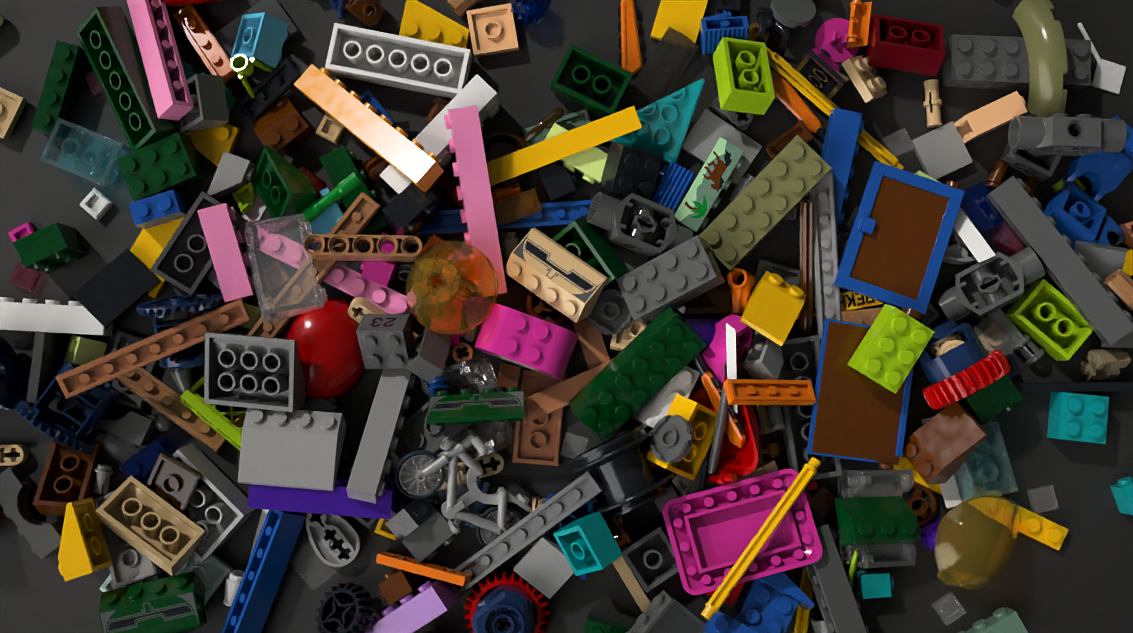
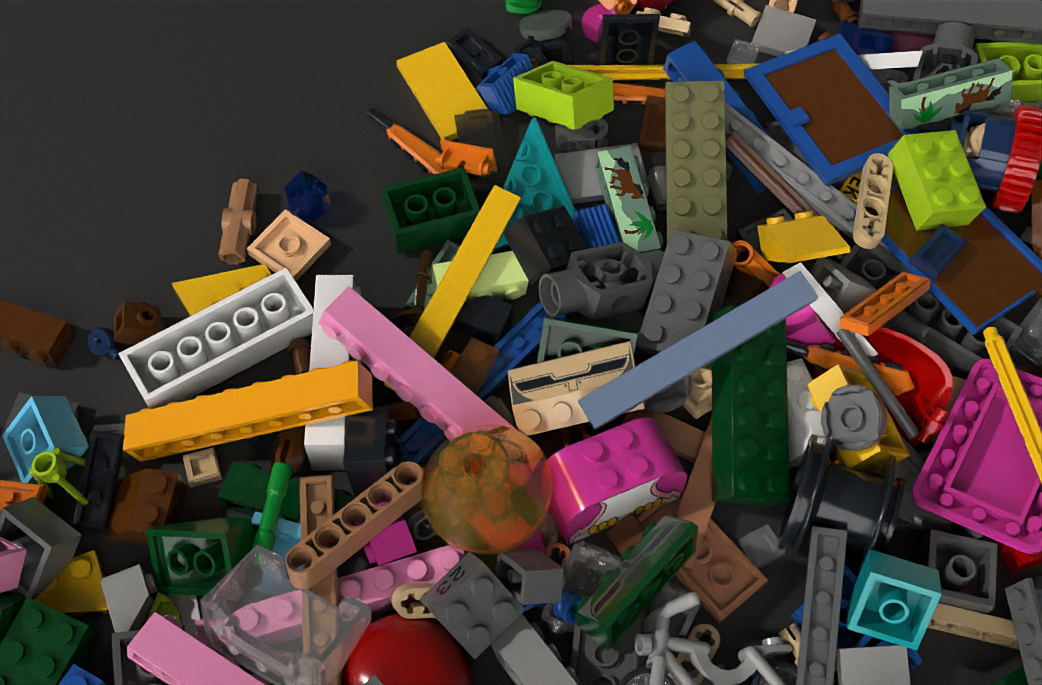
camera: 50 degrees left, 25 degrees down
(630, 323) = (697, 350): none -> sand blue tile
(640, 60) = (475, 159): none -> orange hinge
(840, 325) = (874, 200): none -> tan beam
(842, 389) = (937, 252): none -> dark blue tile
(968, 303) = (950, 94): none -> sand green brick

